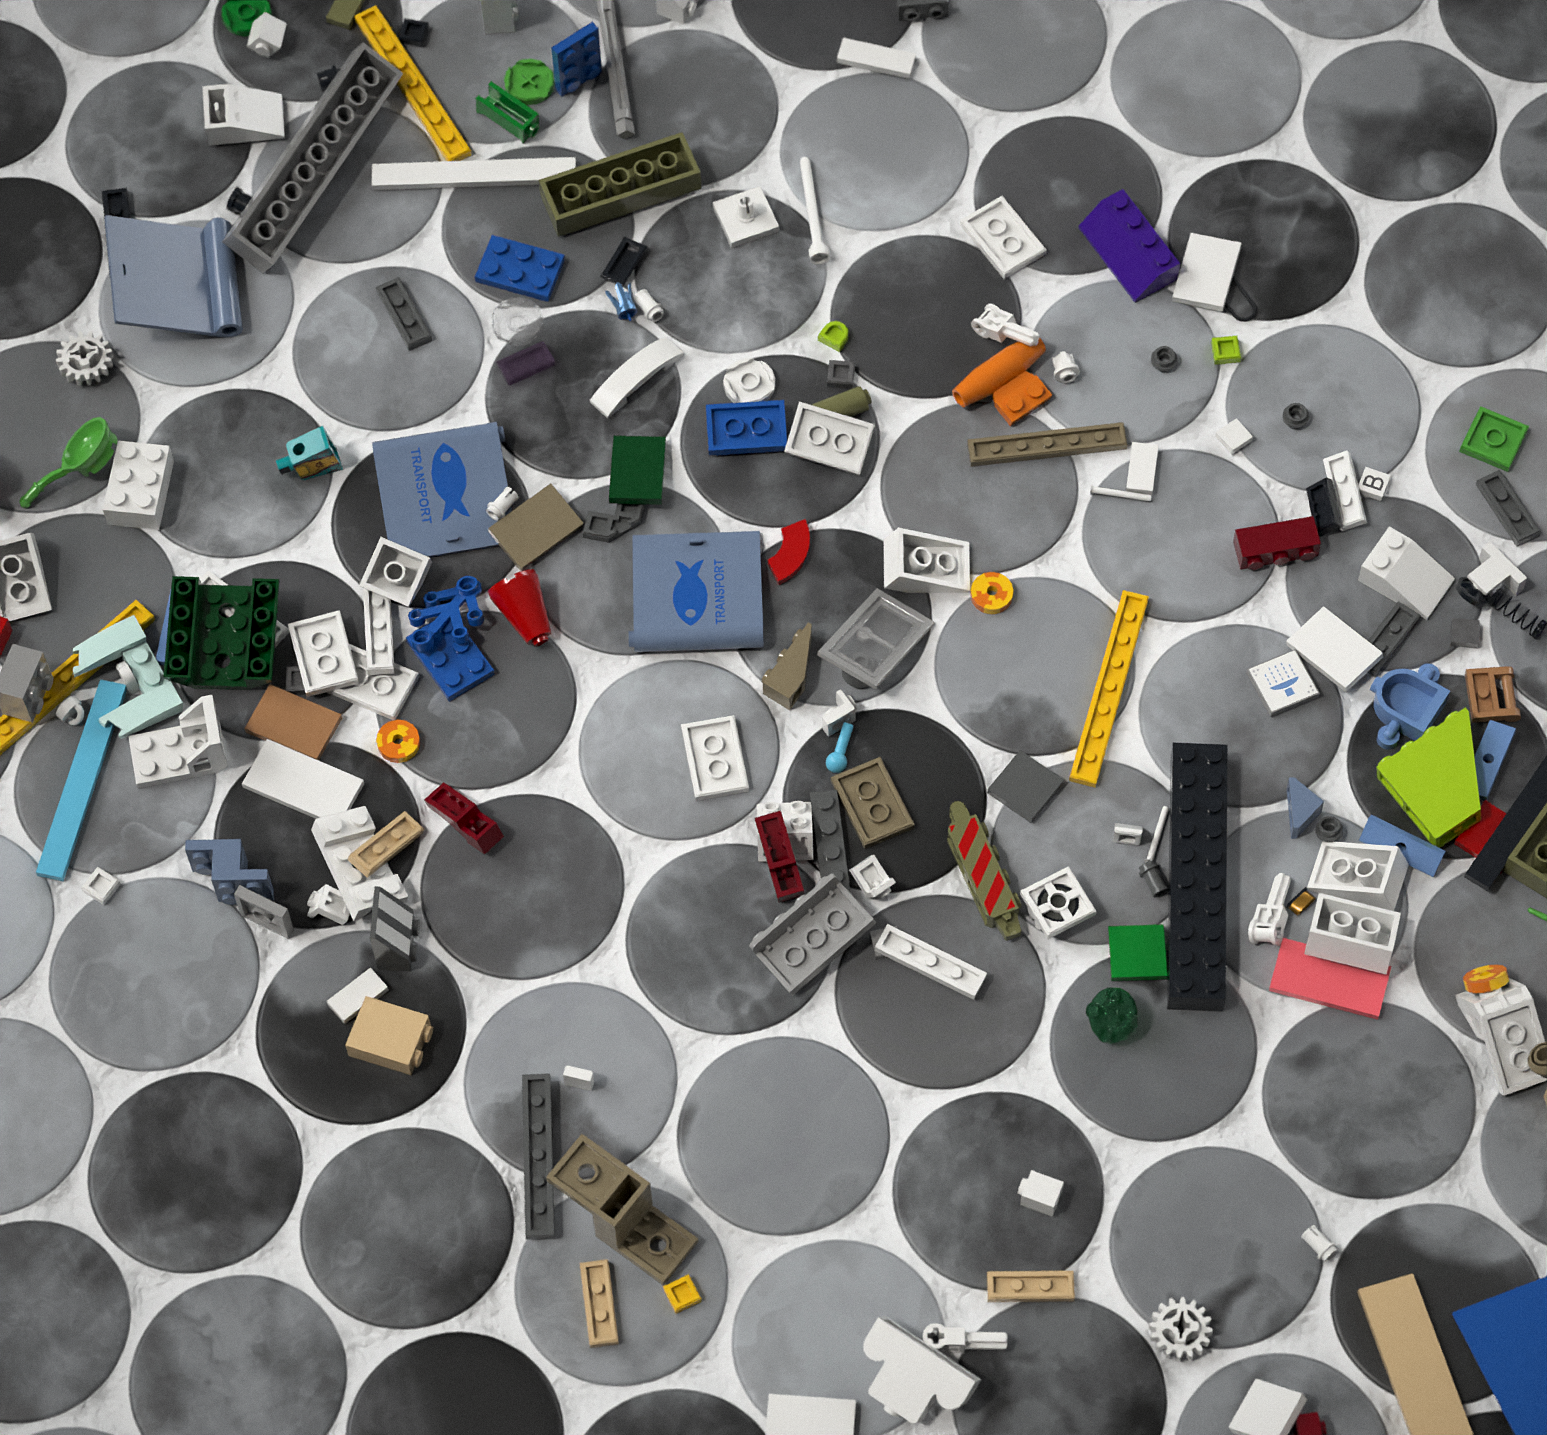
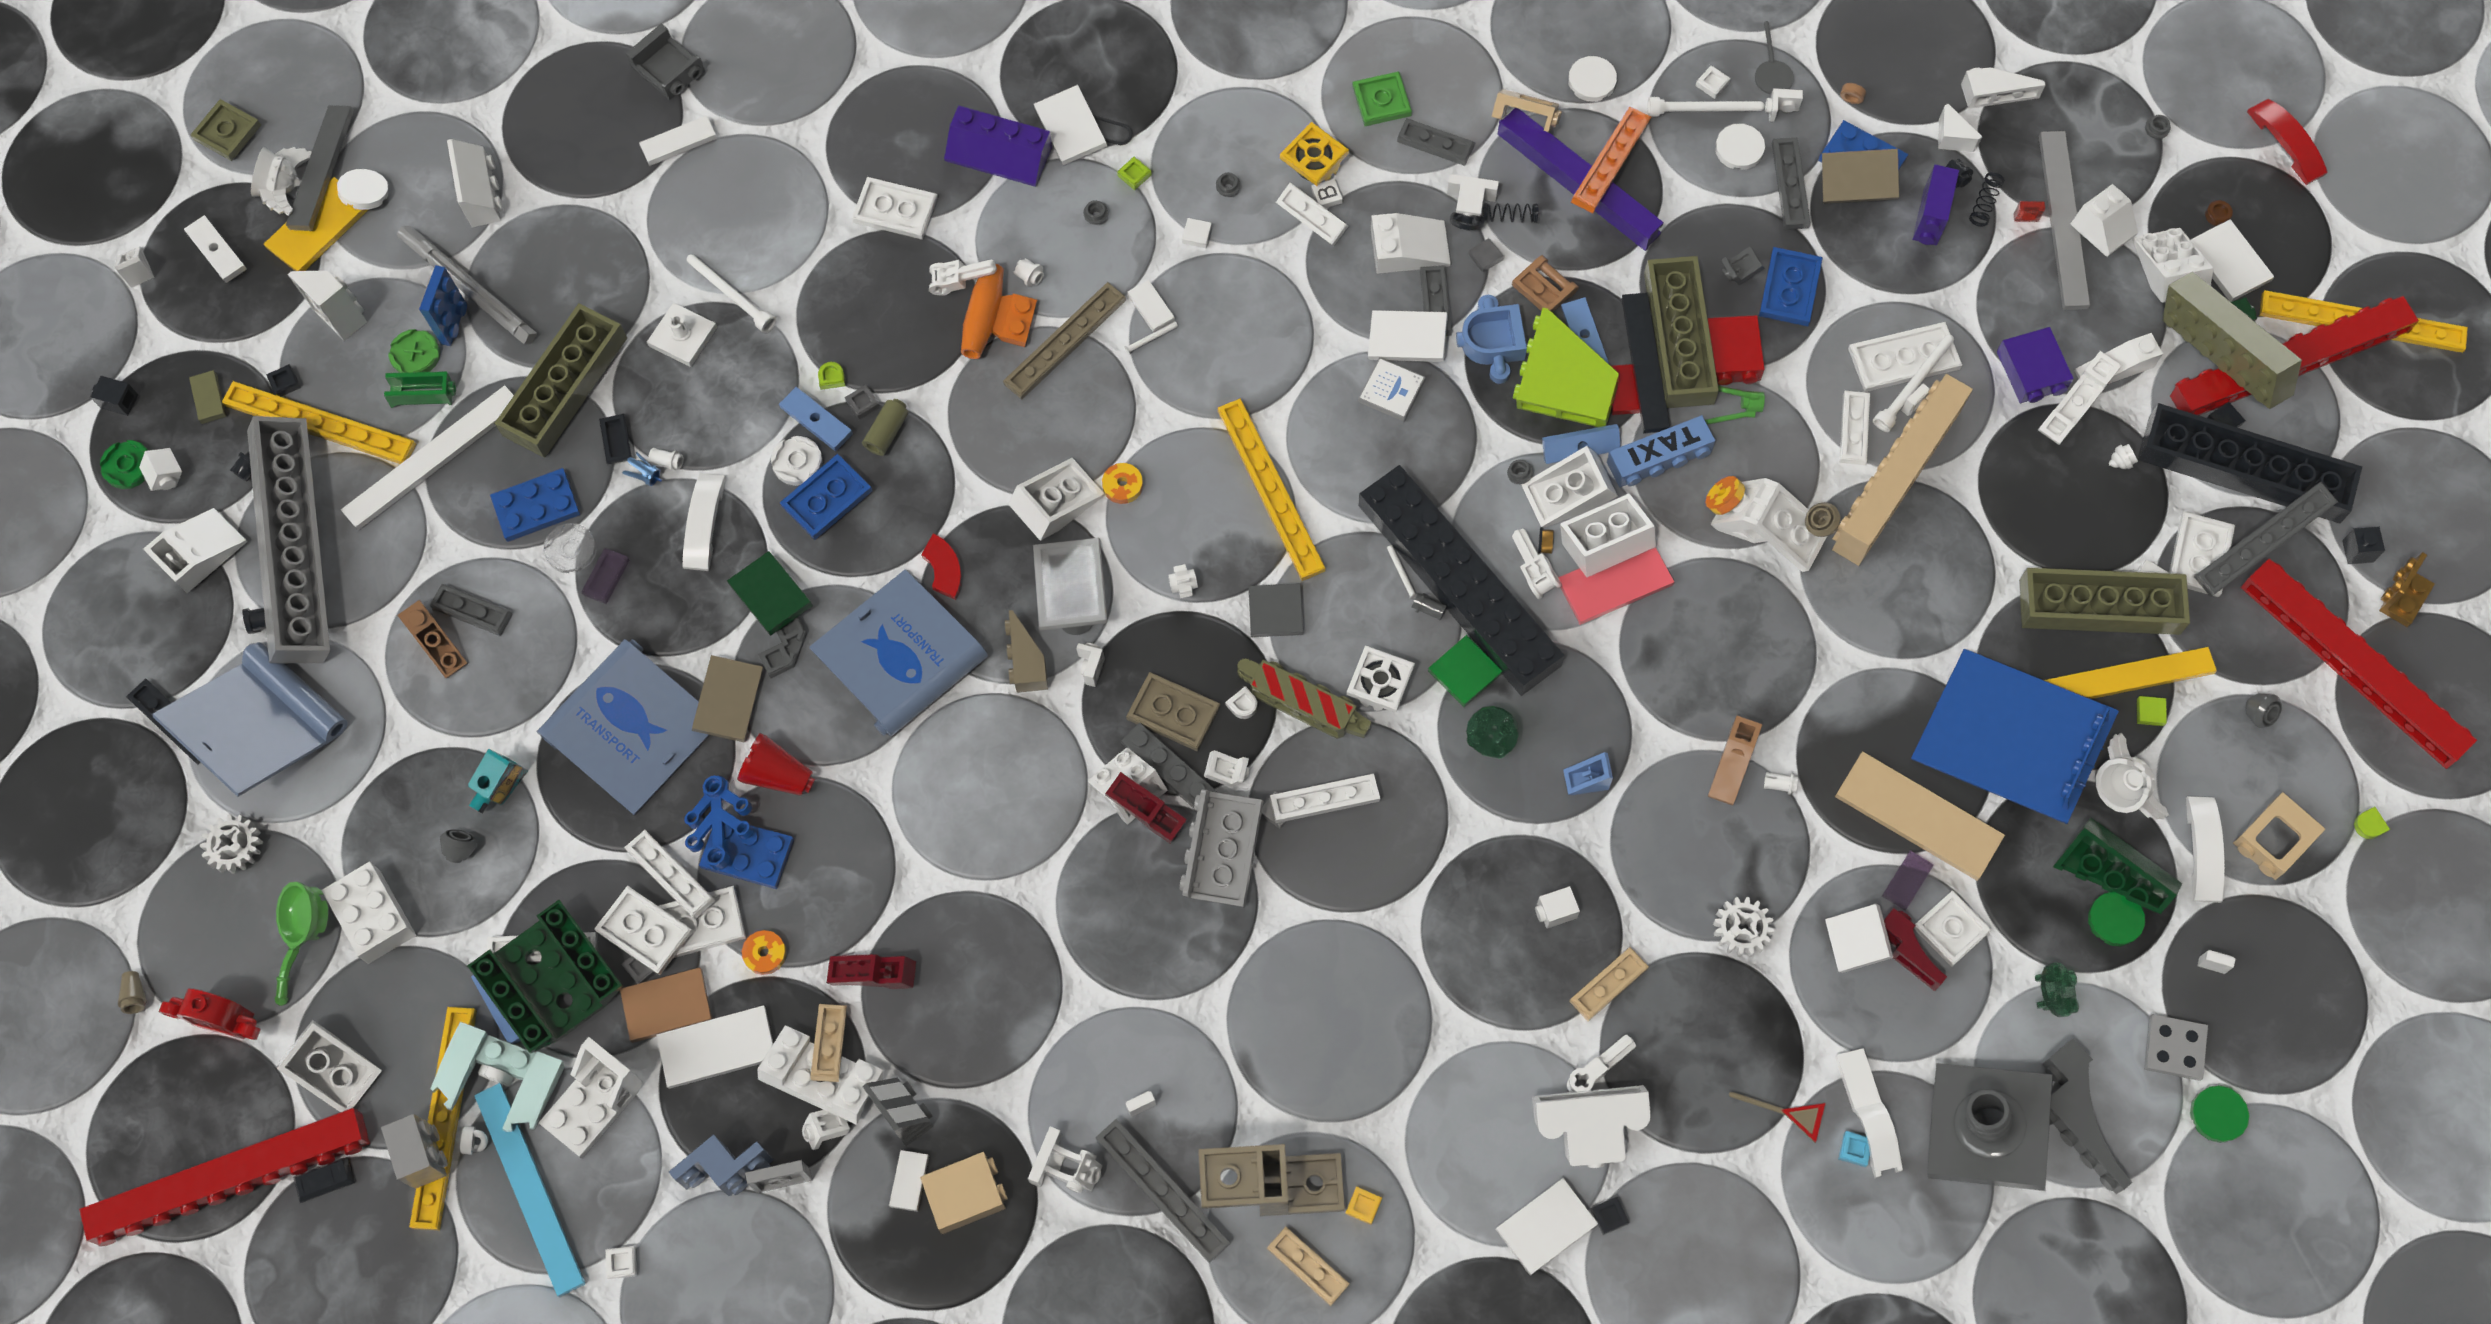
camera: 40 degrees left, 5 degrees up
(243, 484) = (457, 845): none -> dark grey cone
(356, 312) = (432, 638): none -> medium nougat slope
(395, 572) = (648, 820): white slope -> none
(476, 1064) = (1051, 1159): none -> white tile
(497, 509) = (686, 701): white pin -> none
(715, 758) = (1024, 770): white tile -> none
(788, 349) = (806, 410): none -> medium blue tile
(829, 438) = (899, 457): white tile -> none
(837, 761) = (1118, 700): medium azure bar -> none
(933, 839) = (1242, 704): none -> white tile
(969, 705) = (1182, 581): none -> white gear
(1127, 834) = (1380, 587): white slope -> none
(1162, 1112) = (1589, 775): none -> medium blue slope
(1277, 543) = (1298, 289): dark red brick -> none
(1295, 1193) = (1734, 760): none -> medium nougat slope
(1302, 807) = (1486, 470): sand blue slope -> none
(1323, 506) = (1308, 237): black plate -> none
(1356, 1405) = (1907, 880): none -> clear purple tile
(1390, 442) = (1312, 154): none -> yellow piece
(1465, 903) = (1660, 452): none -> medium blue brick

